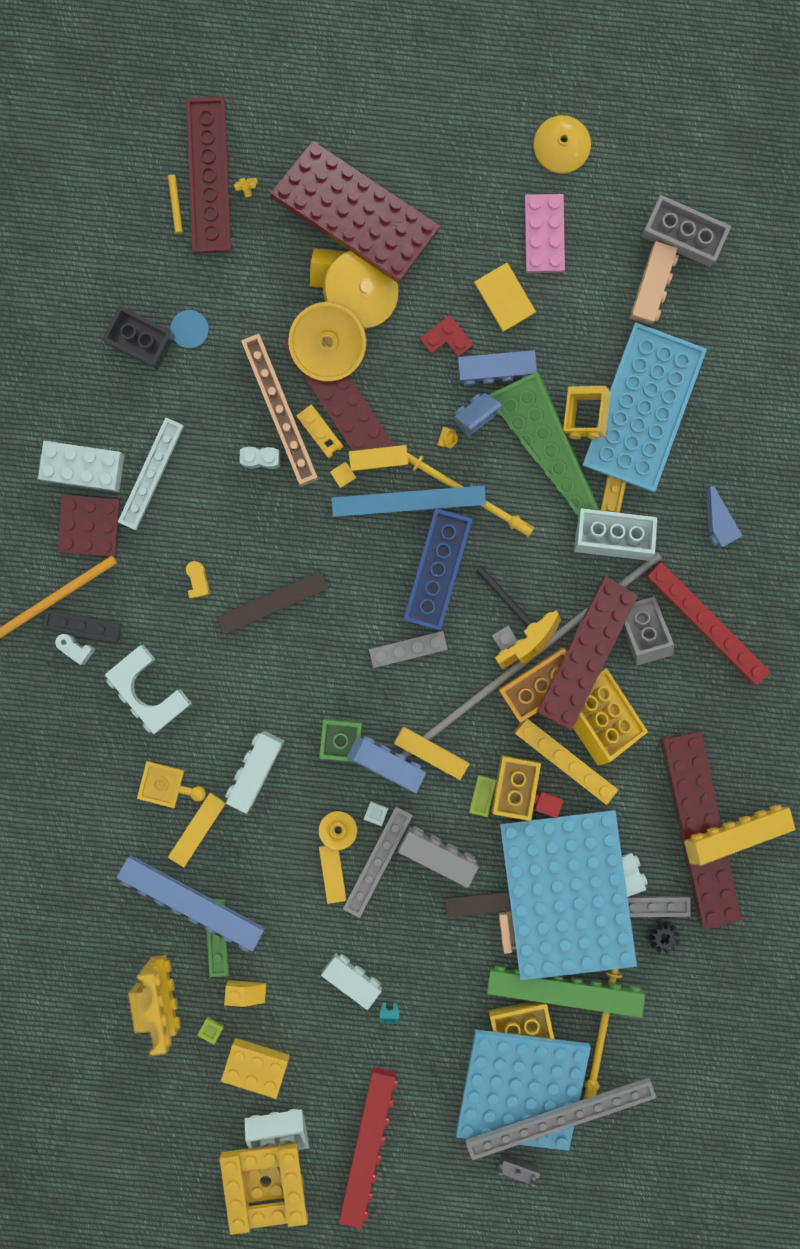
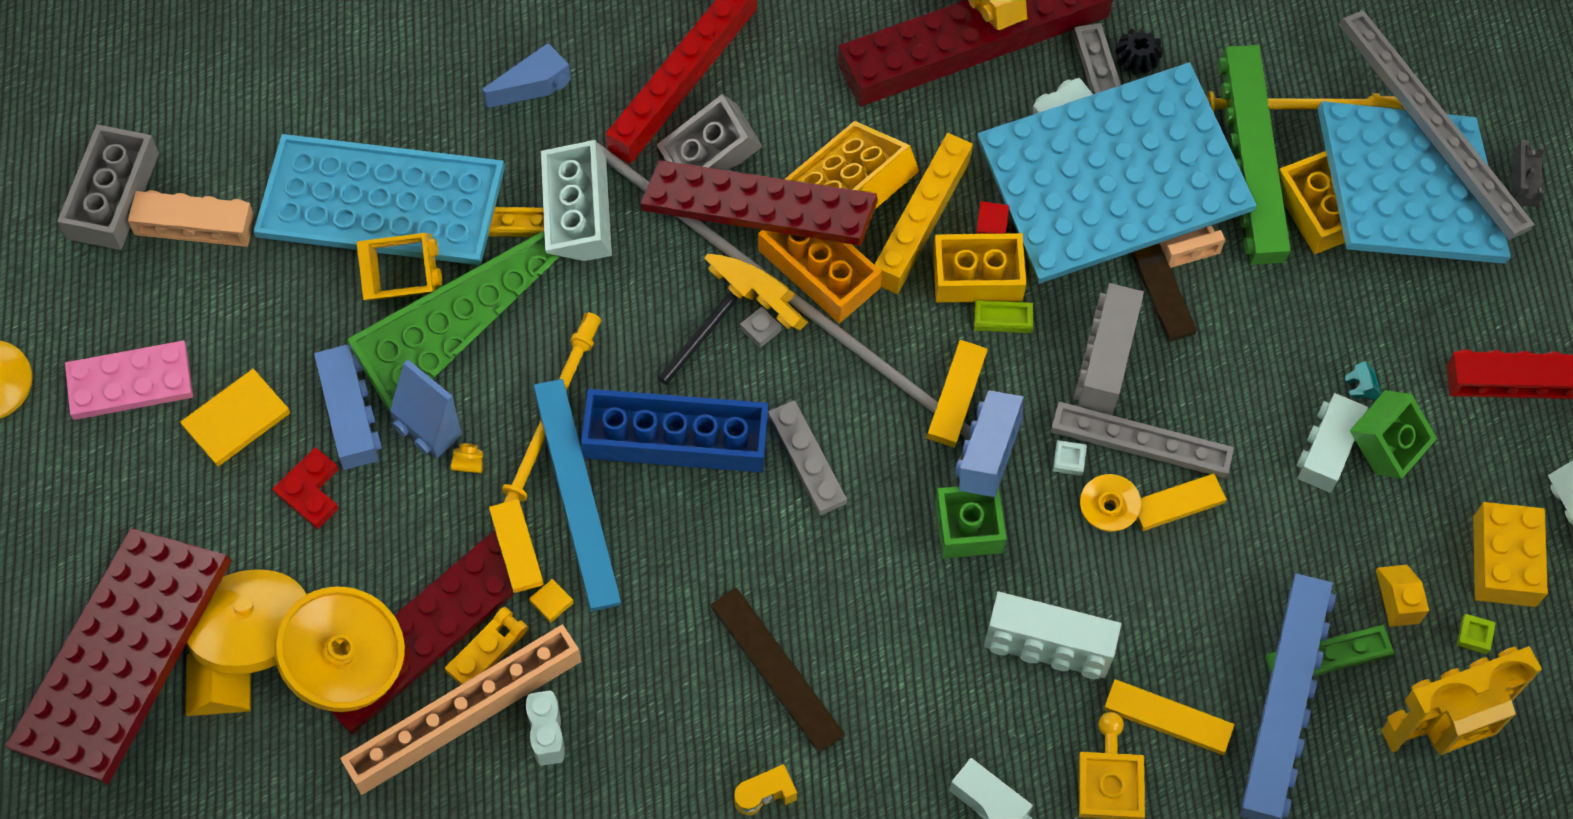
camera: 100 degrees left, 25 degrees down
(344, 1020) = (1393, 434): none -> bright green brick

